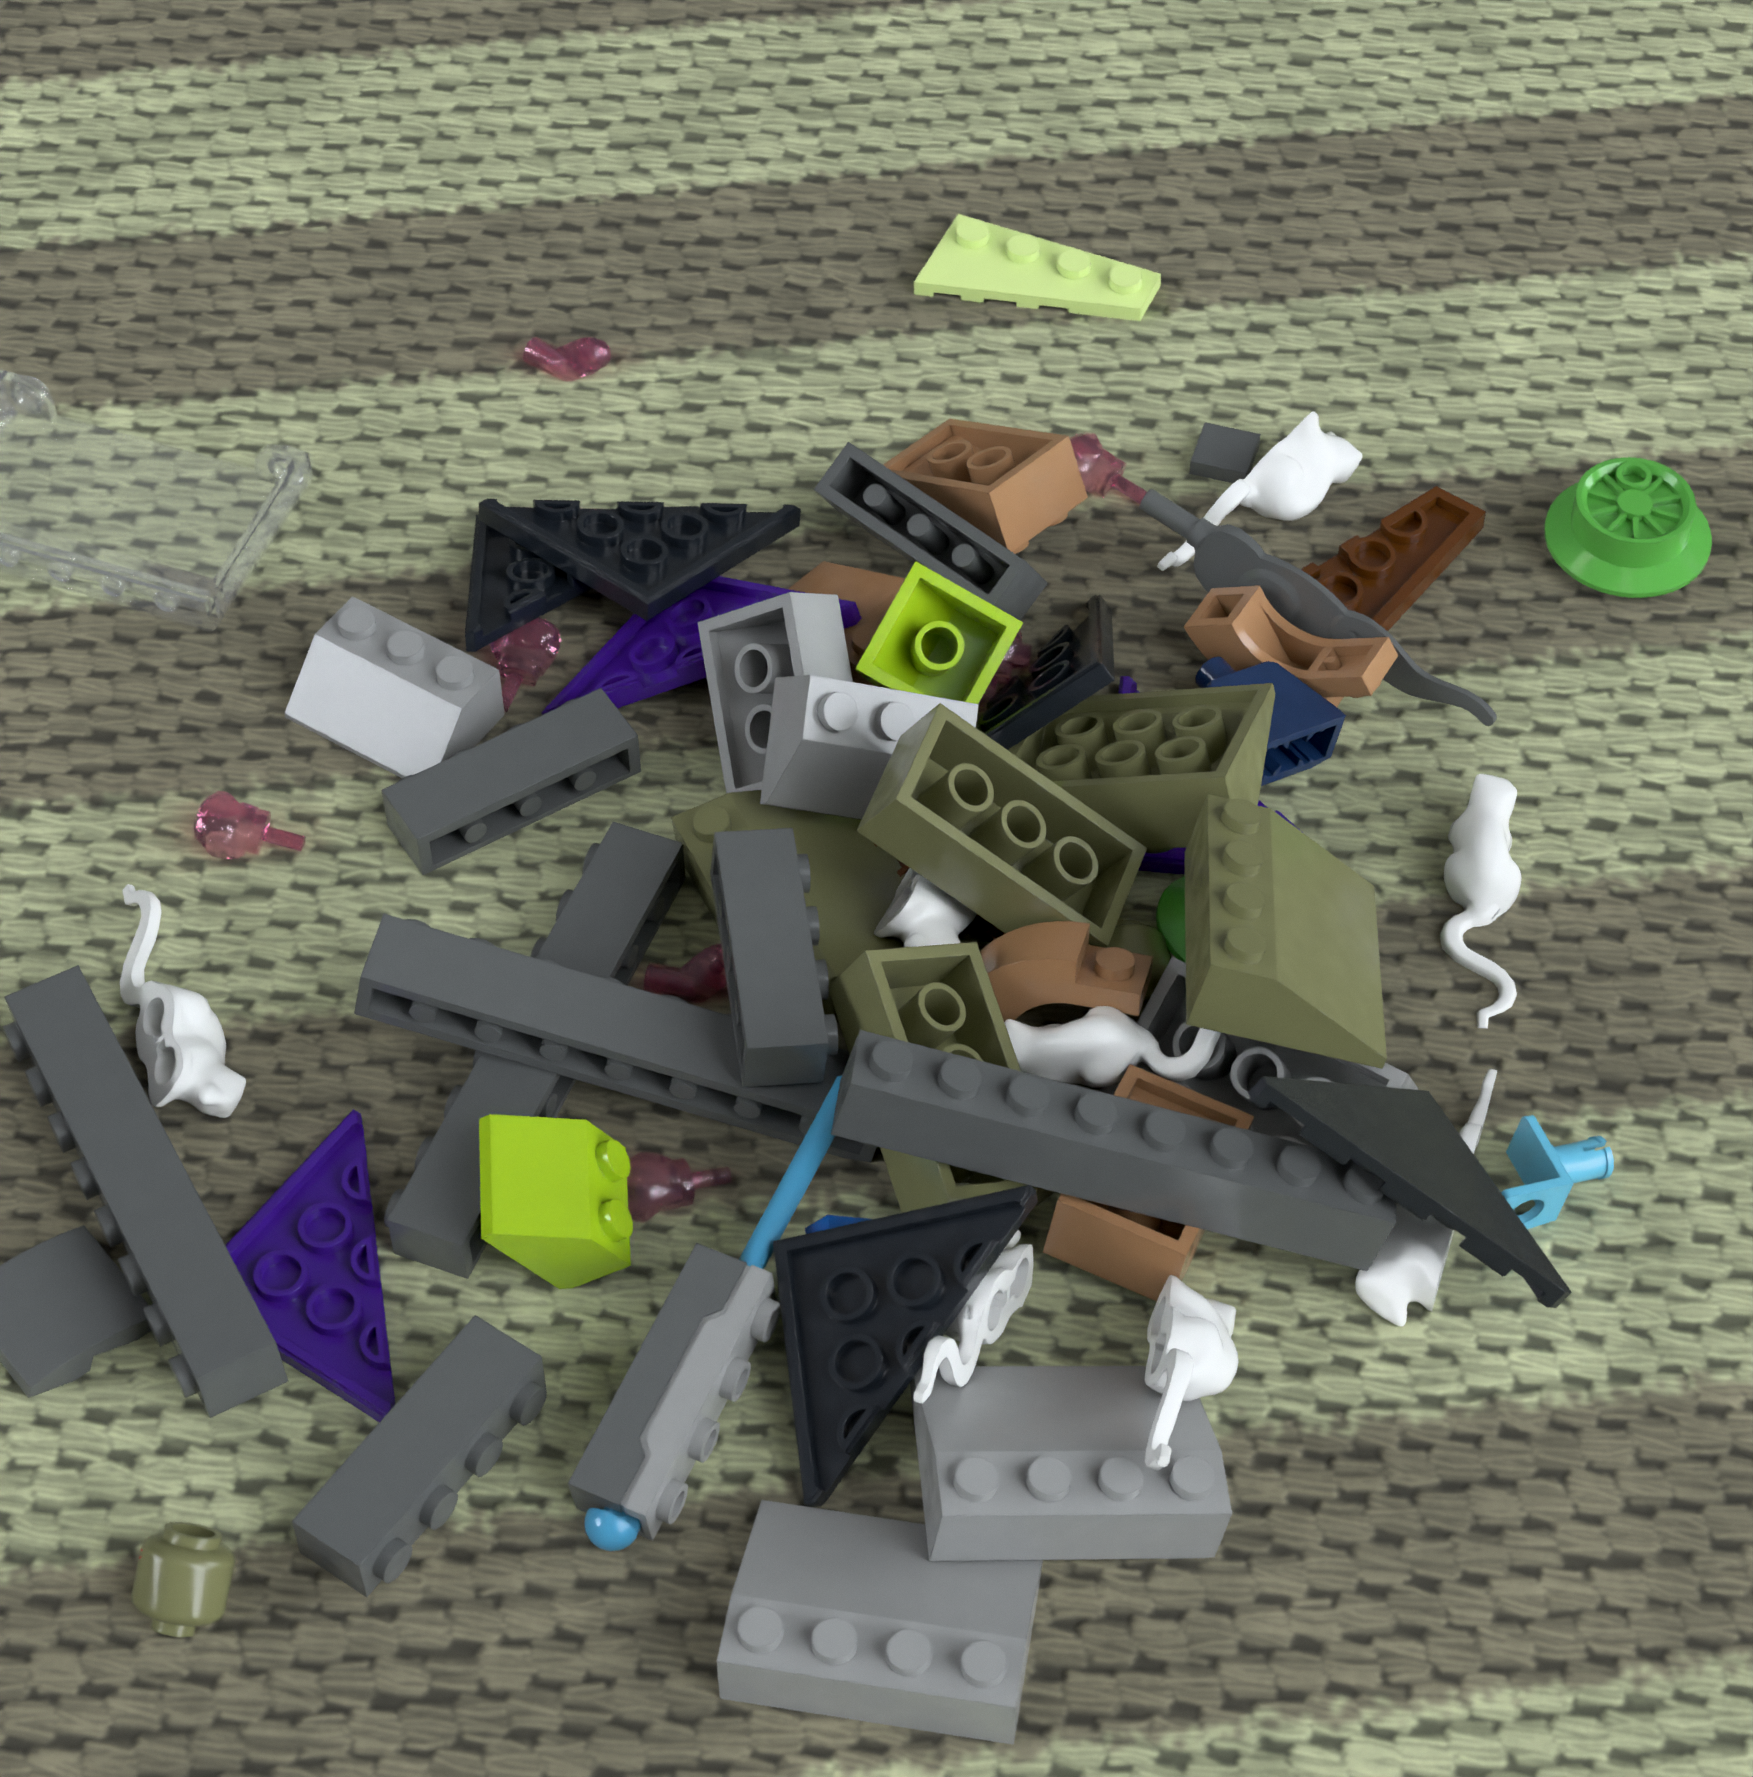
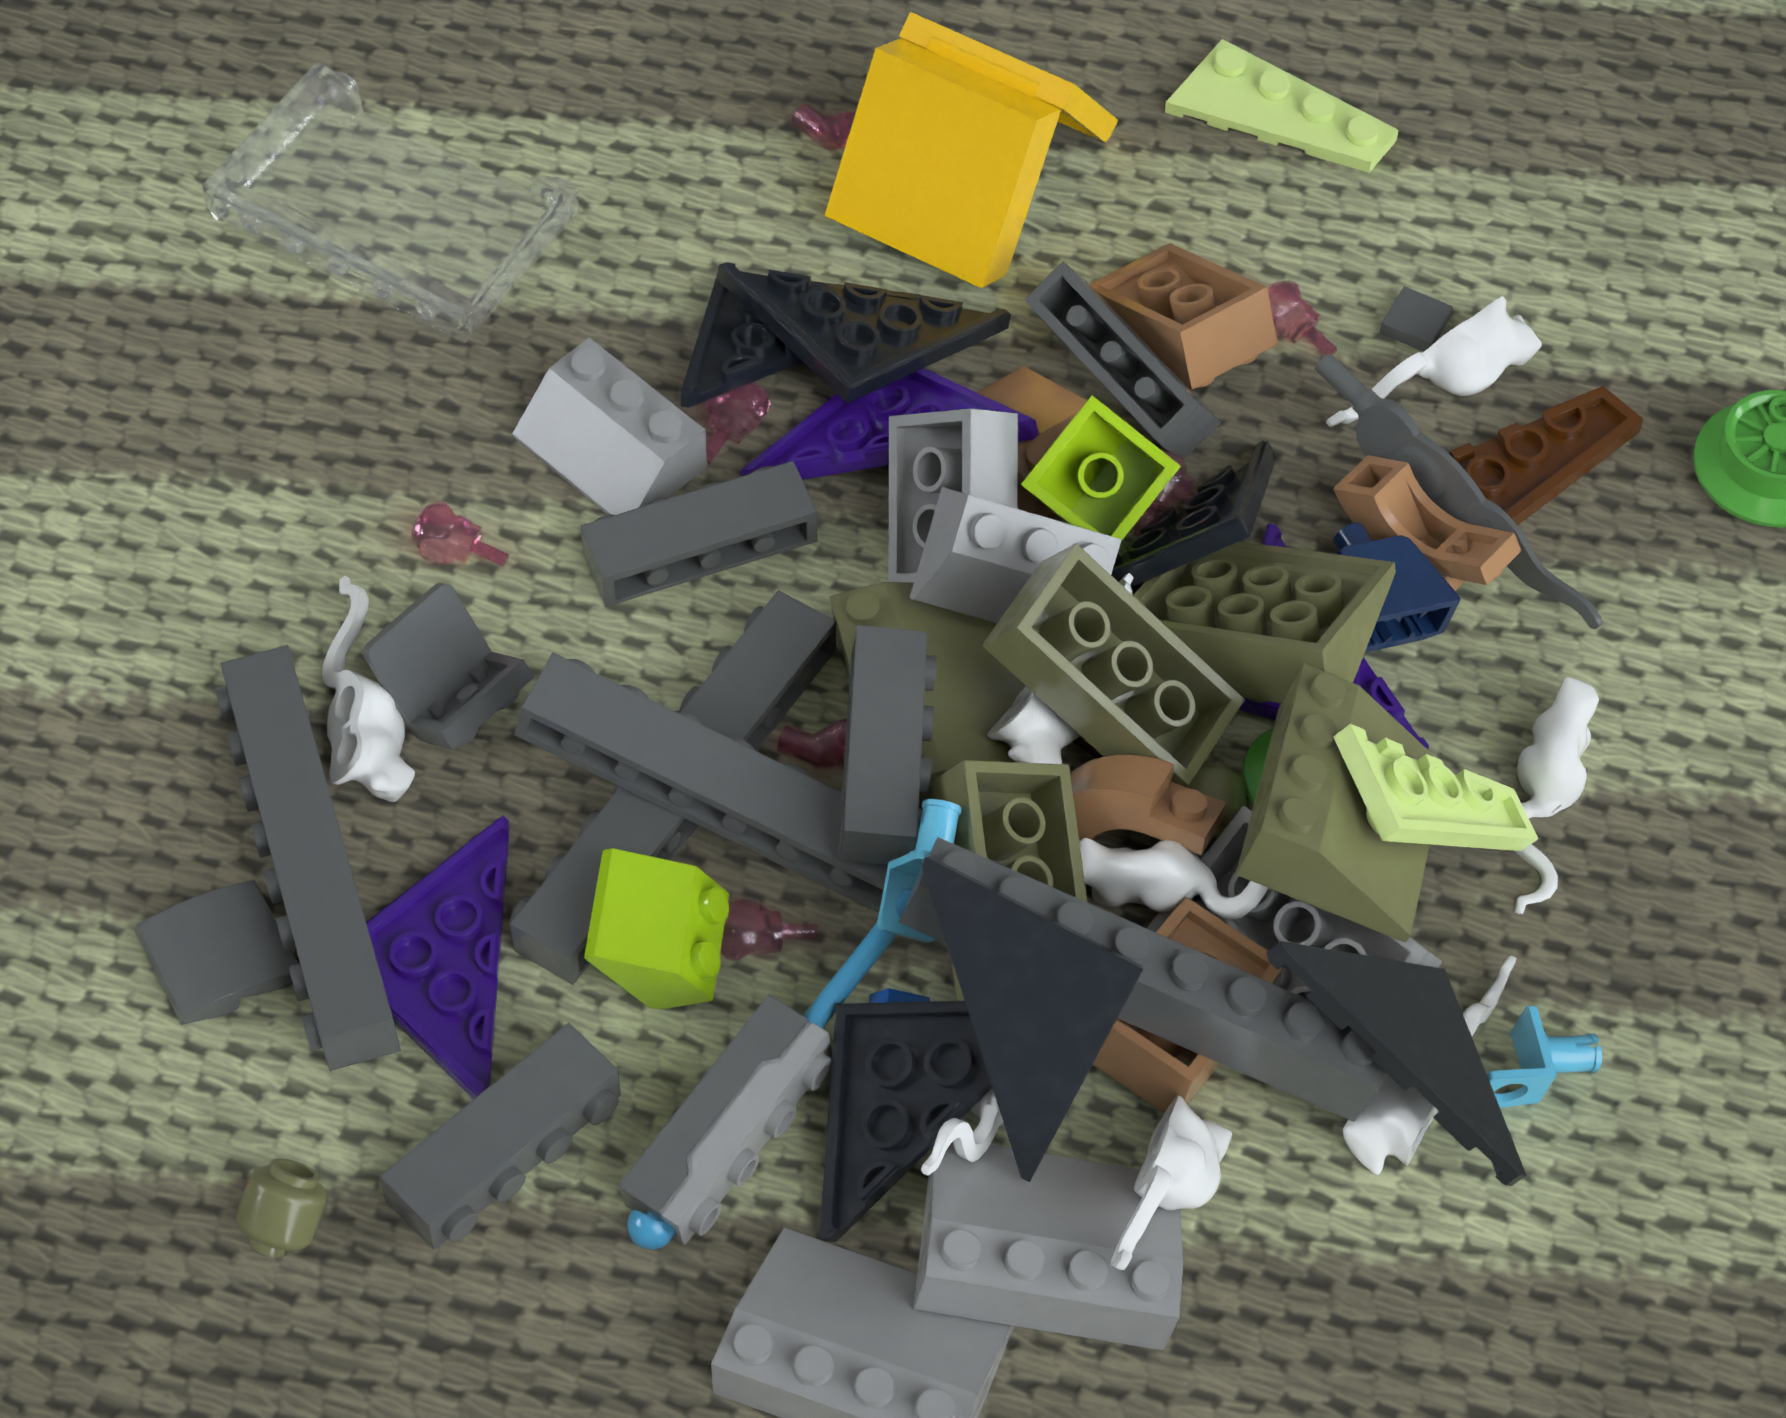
camera: 10 degrees right, 5 degrees up
(257, 964) = (443, 669): none -> dark grey bracket
(707, 347) = (953, 148): none -> yellow container
(822, 1083) = (937, 820): none -> medium azure bracket
(1003, 1190) = (1034, 1000): none -> black tile
(1368, 919) = (1427, 802): none -> yellowish green wing

